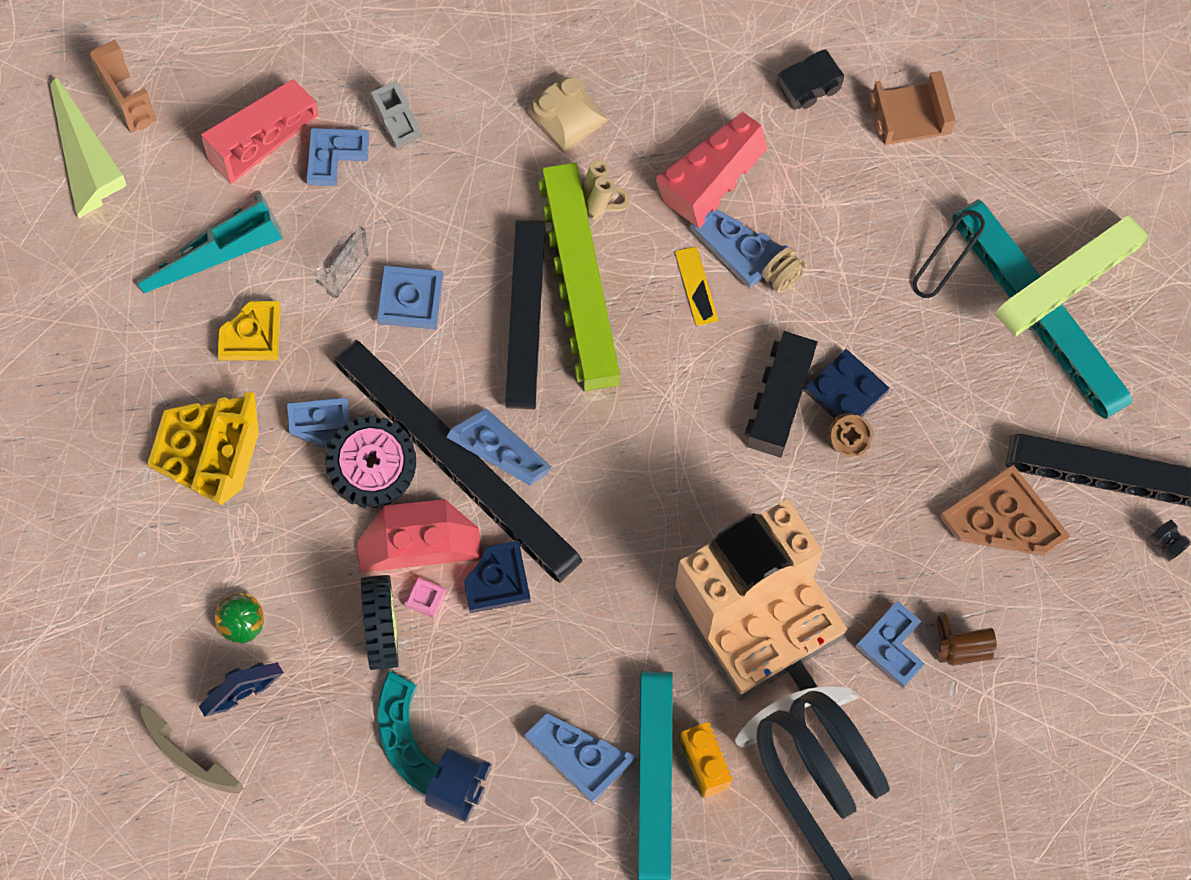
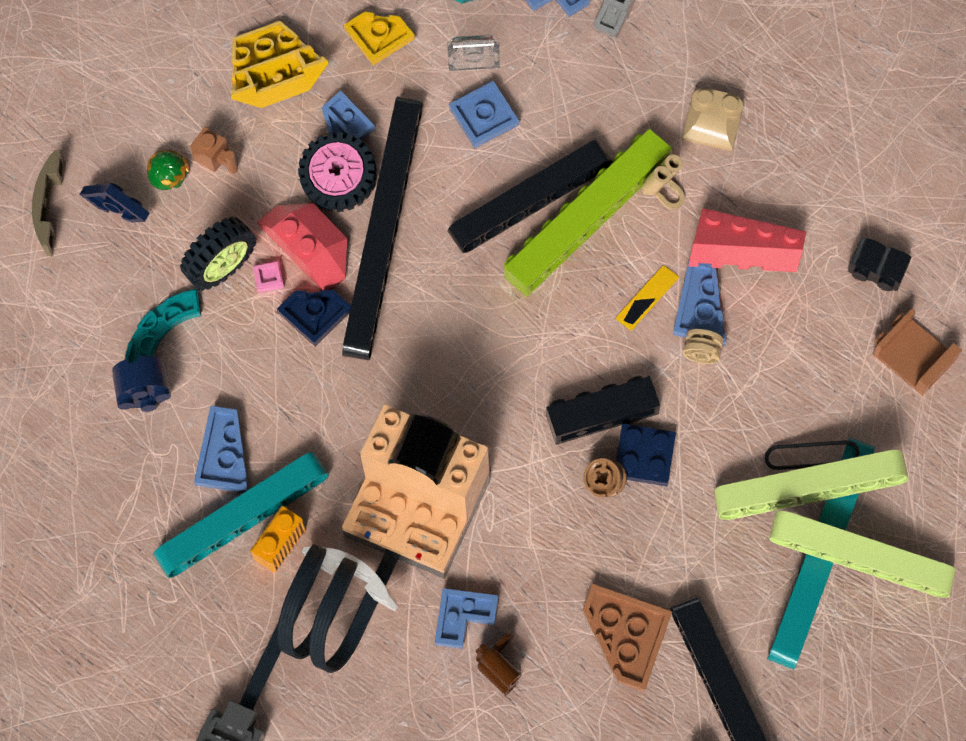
camera: 60 degrees right, 0 degrees up
(255, 562) = (212, 151): none -> nougat brick
(500, 446) = (413, 246): medium blue wing -> none
(981, 272) = (811, 484): none -> yellowish green beam

